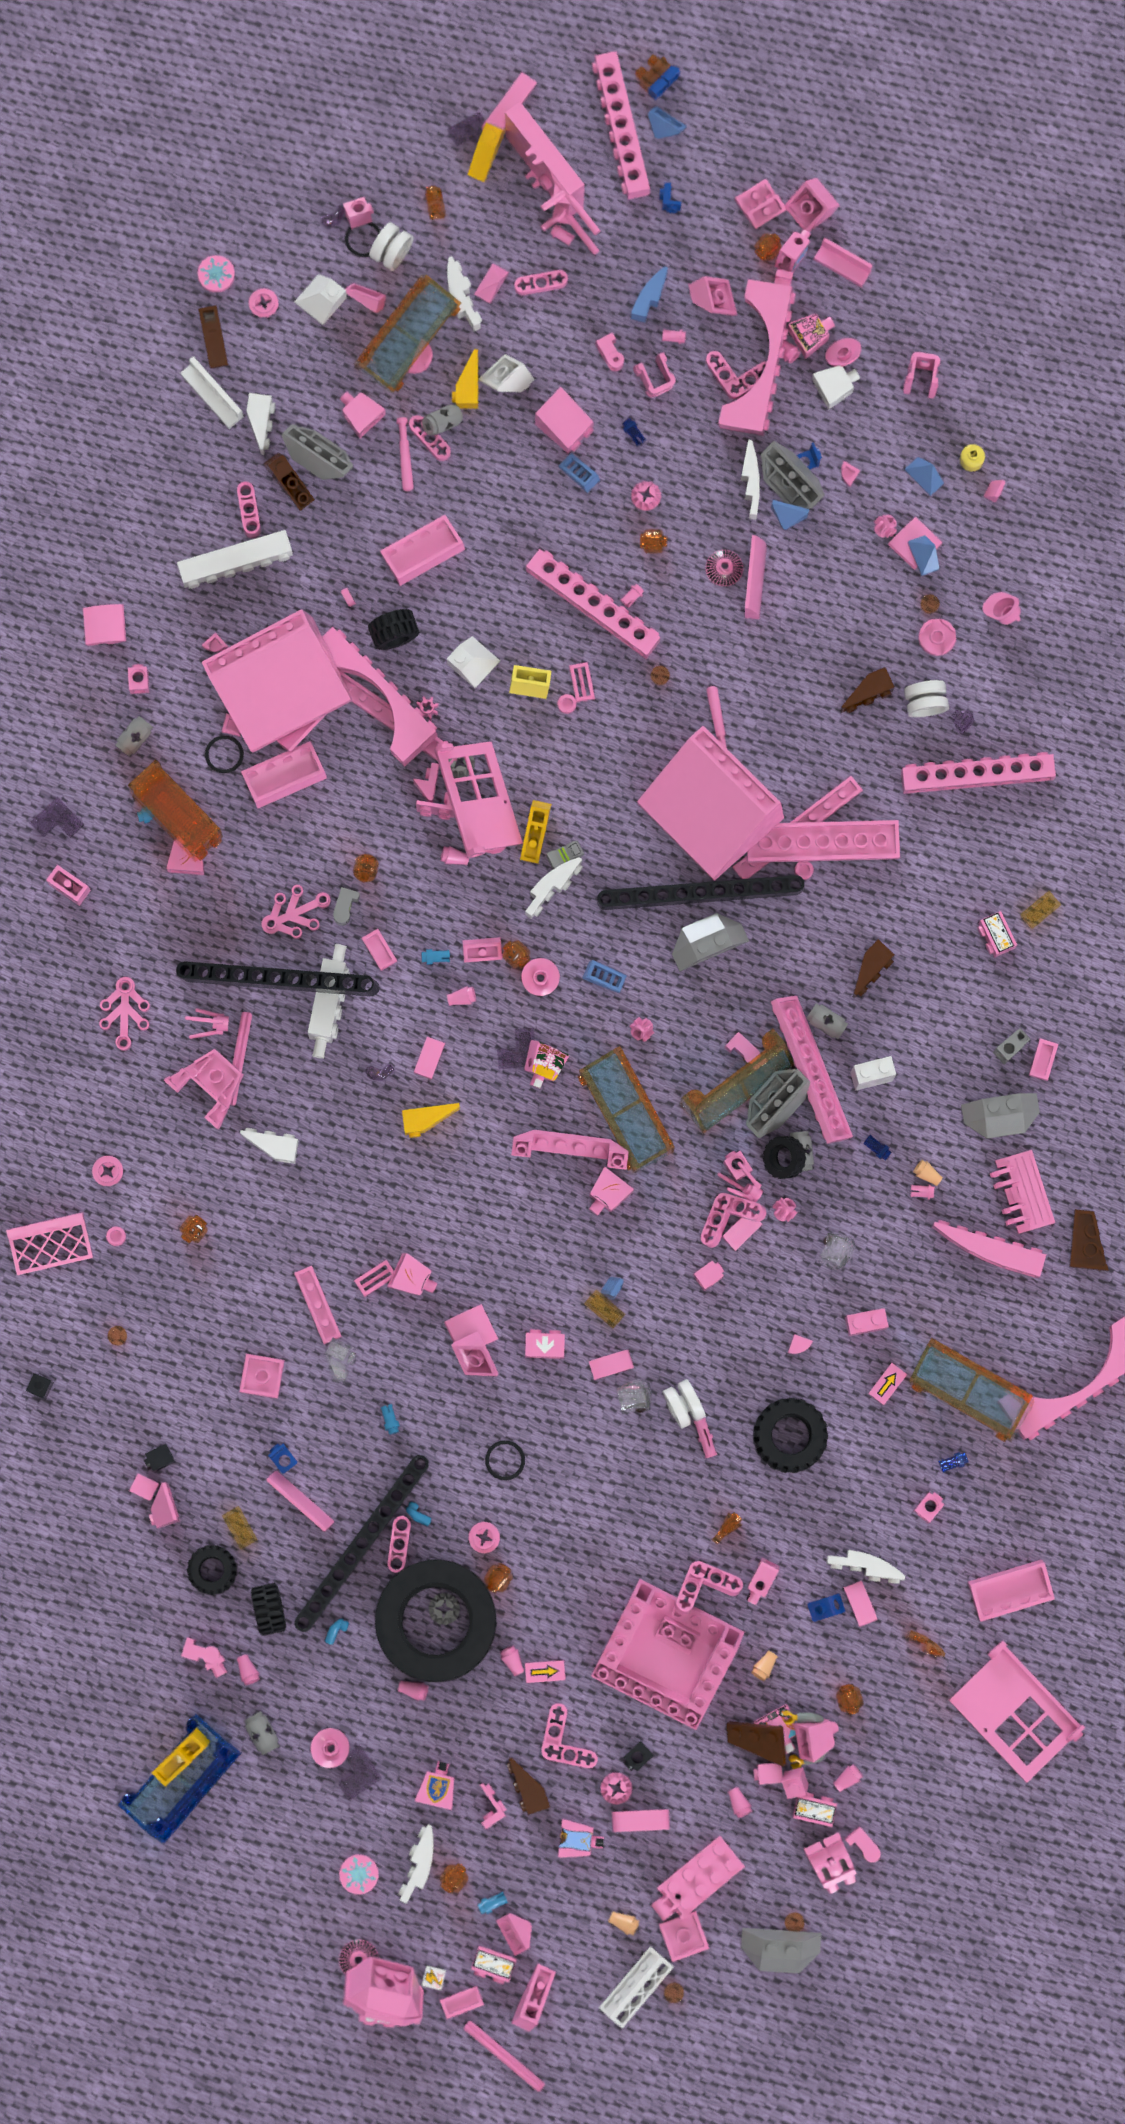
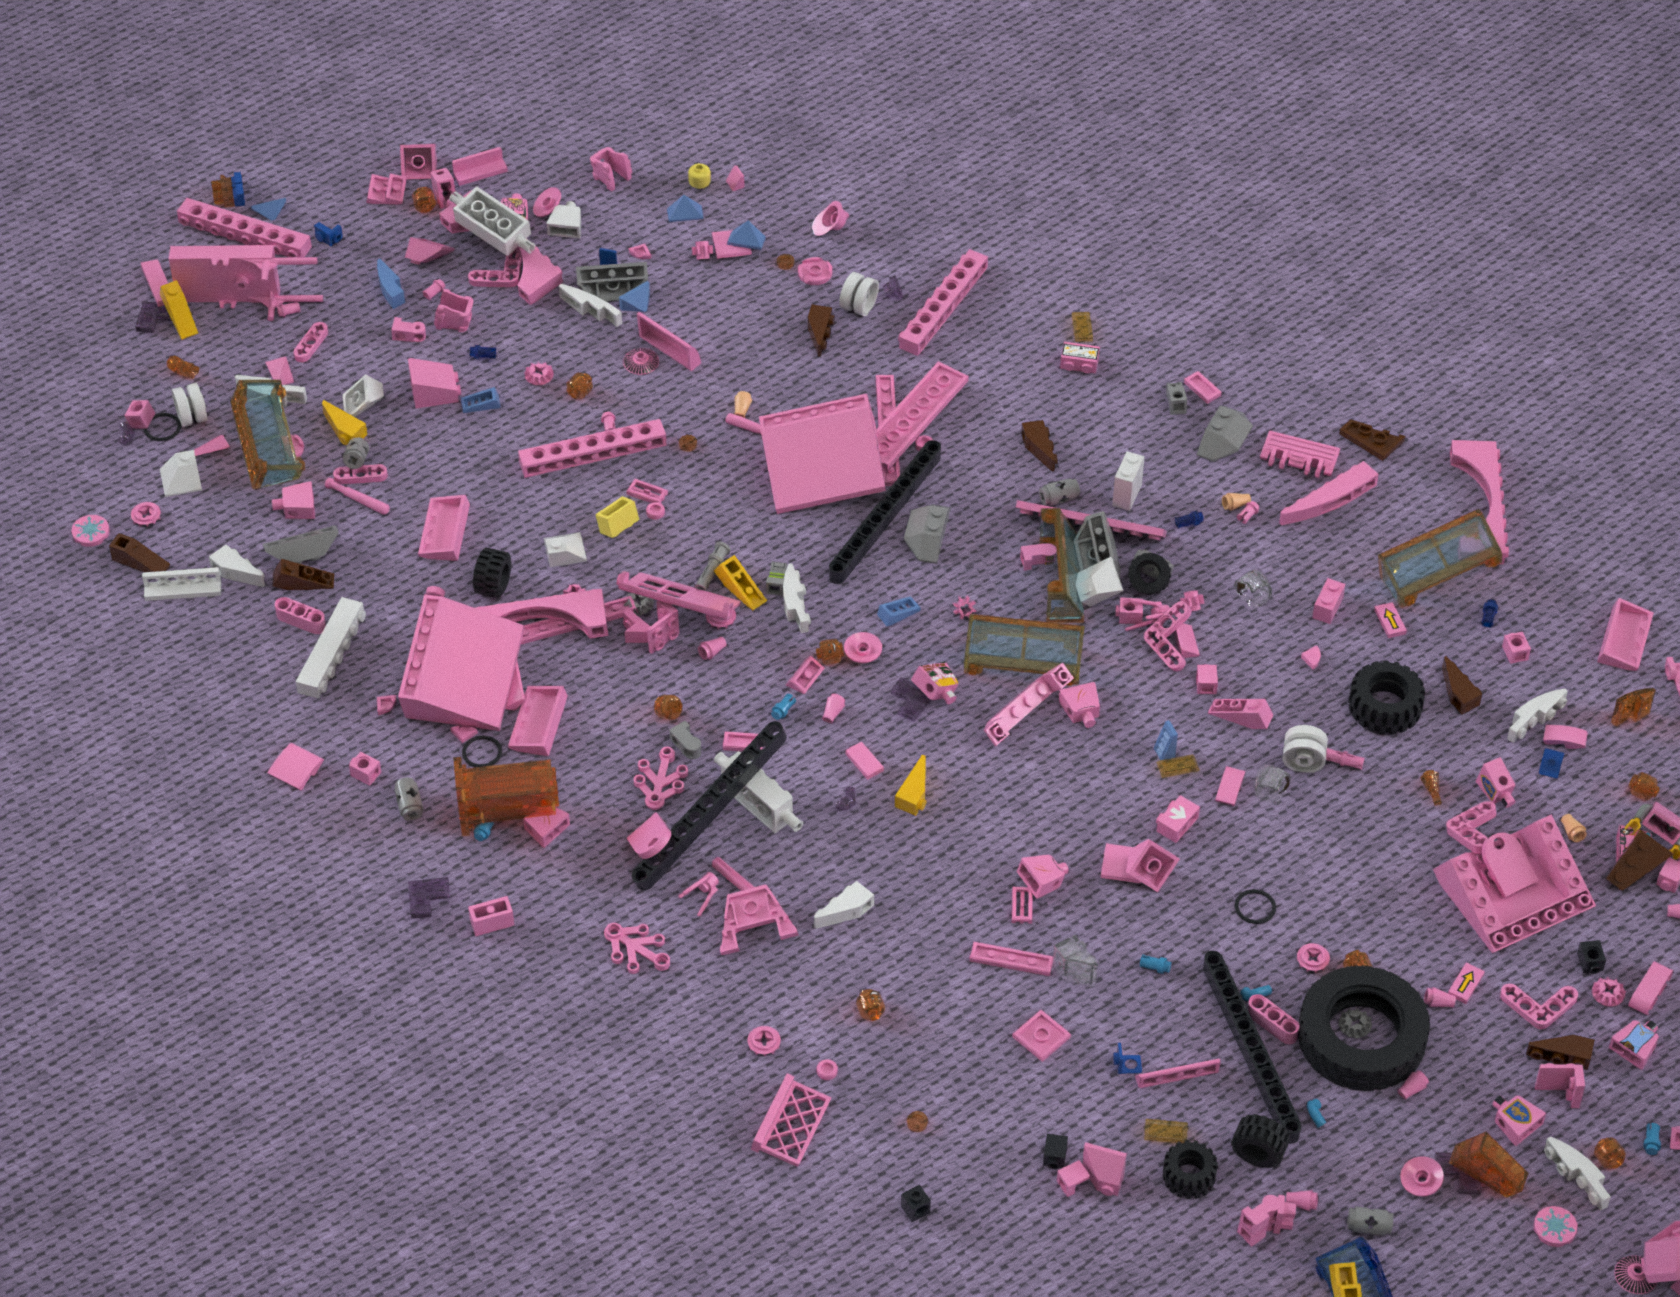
camera: 50 degrees left, 30 degrees down
(222, 952) = (650, 837): none -> bright pink tile
(369, 1796) = (1489, 1164): none -> clear orange wedge
(547, 793) = (714, 560): none -> light grey pin
(679, 1639) = (1508, 865): none -> bright pink tile
(694, 1325) = (1245, 712): none -> bright pink slope
(733, 689) = (742, 403): none -> light nougat cone
(742, 1121) = (1098, 582): none -> white slope
(763, 335) = (492, 221): none -> white brick
(845, 1491) = (1460, 689): none -> reddish brown slope

